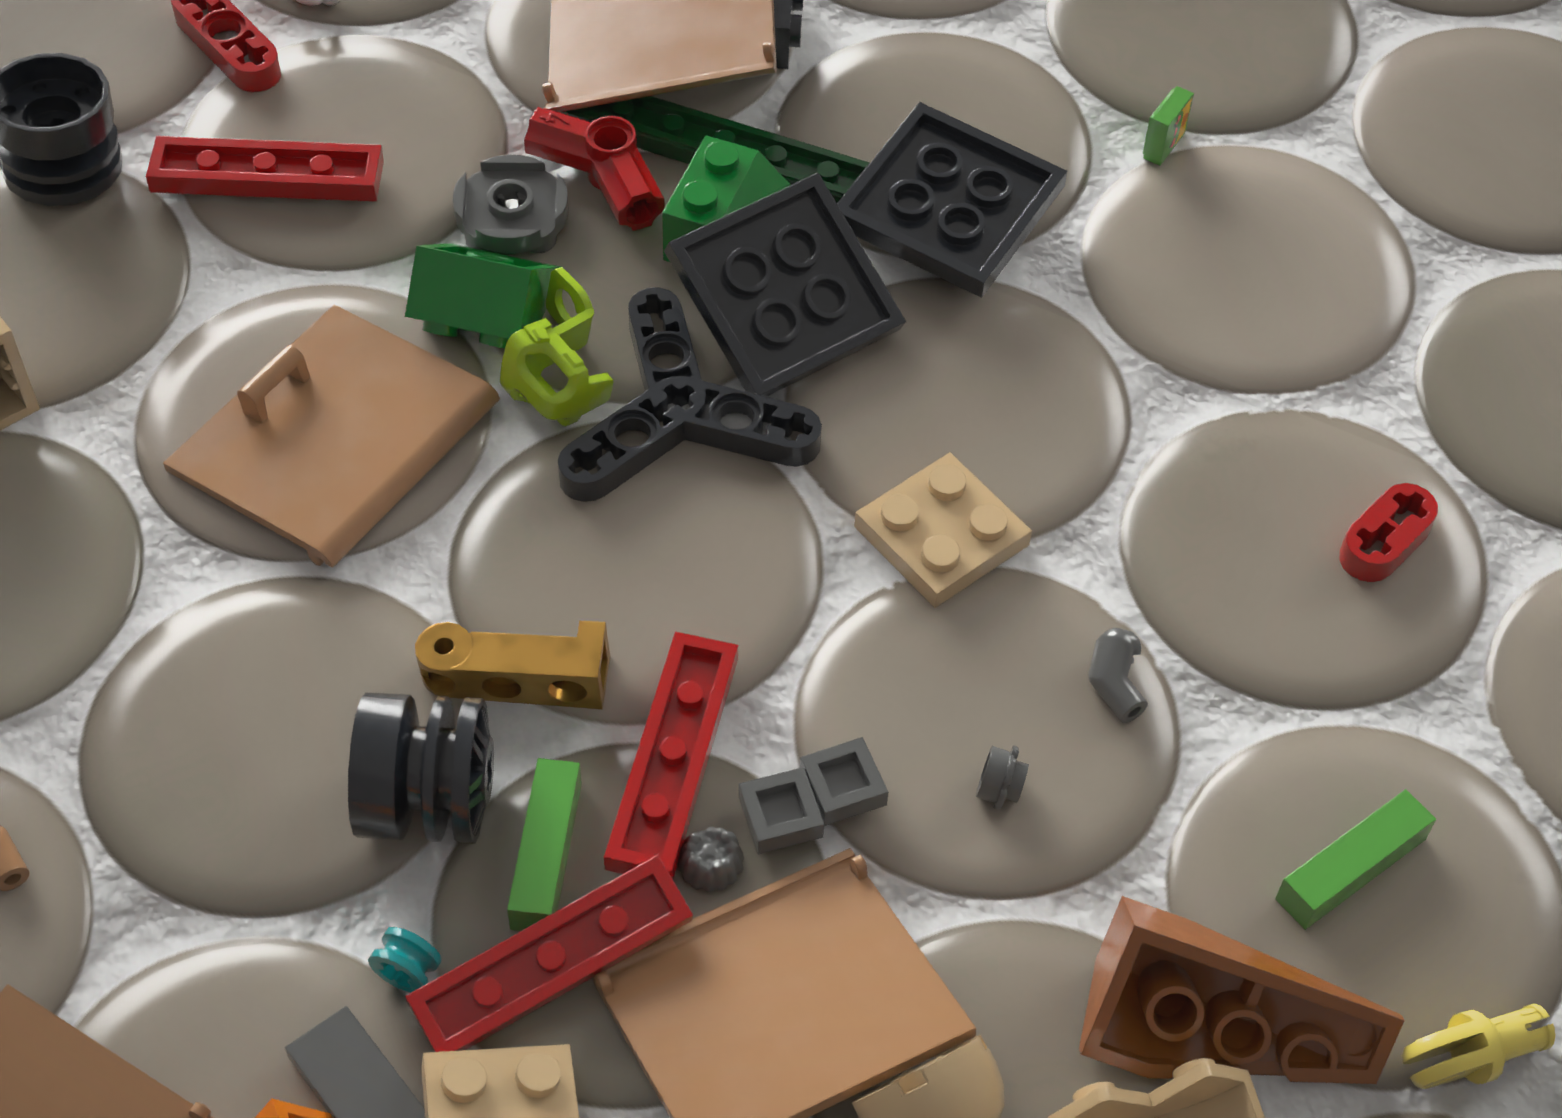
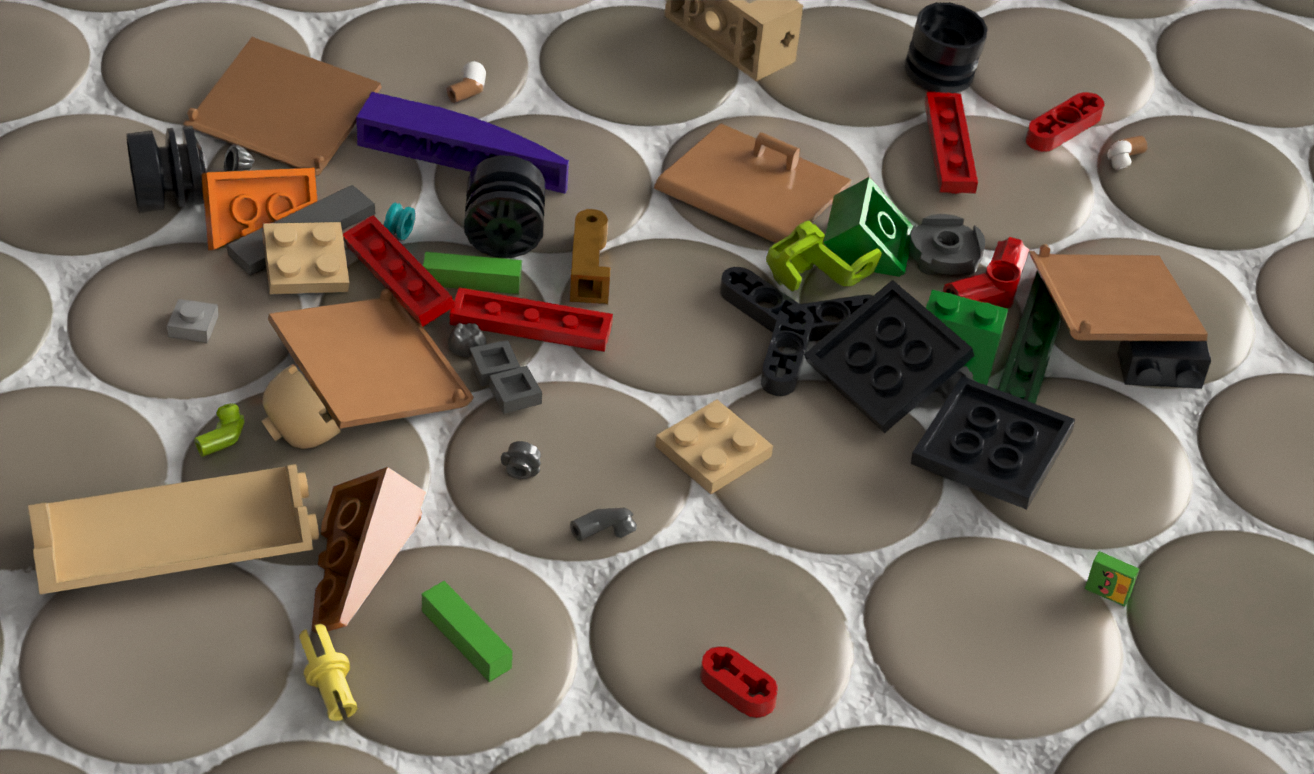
camera: 85 degrees right, 10 degrees down
(171, 872) = (449, 138): none -> dark purple slope

